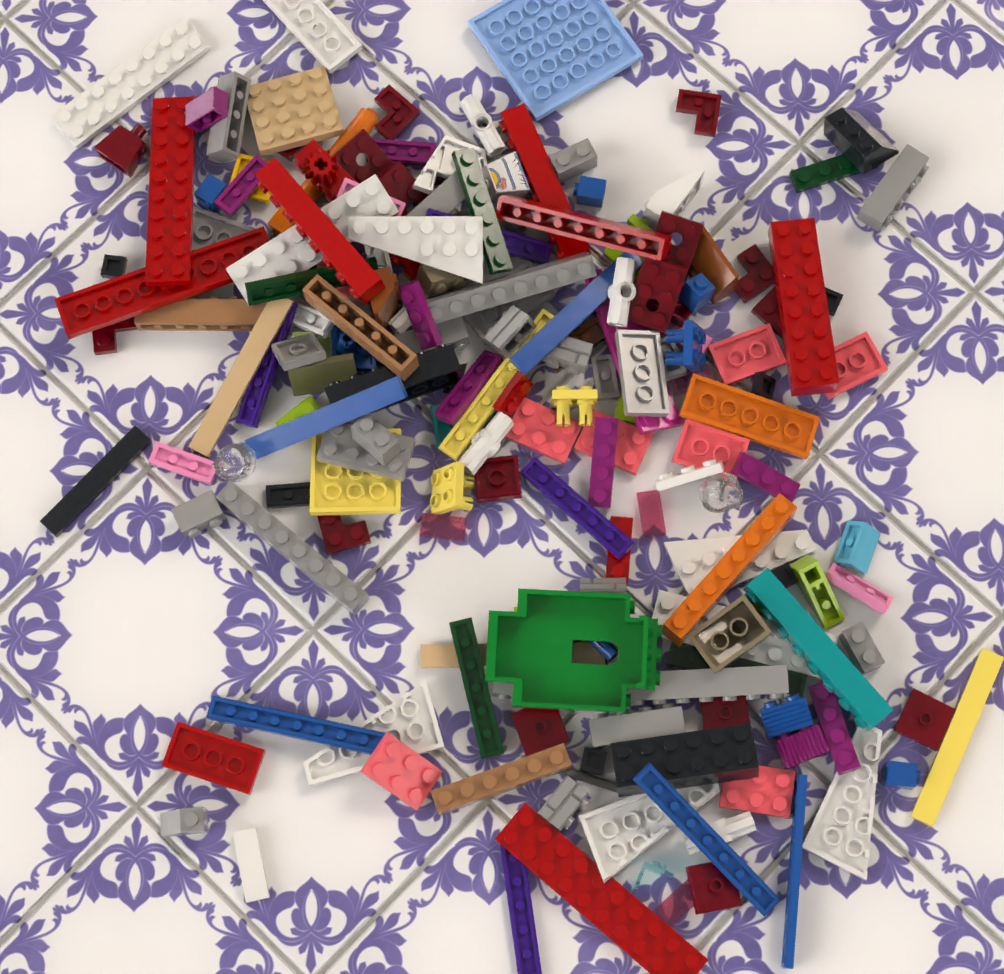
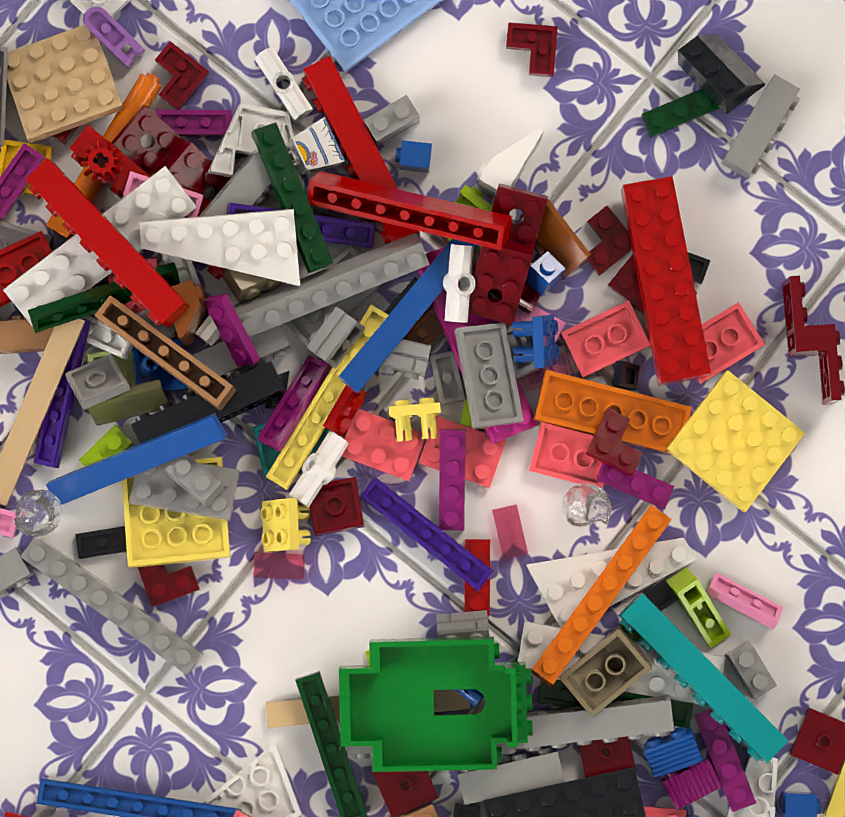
camera: 10 degrees left, 10 degrees up
(340, 75) = (112, 34): none -> medium lavender plate
(689, 474) = (550, 487): white plate -> none
(745, 444) = (607, 444): none -> dark red plate
(857, 449) = (735, 441): none -> light yellow plate
(857, 546) = (740, 552): medium azure panel -> none
(931, 366) = (812, 340): none -> dark red bracket

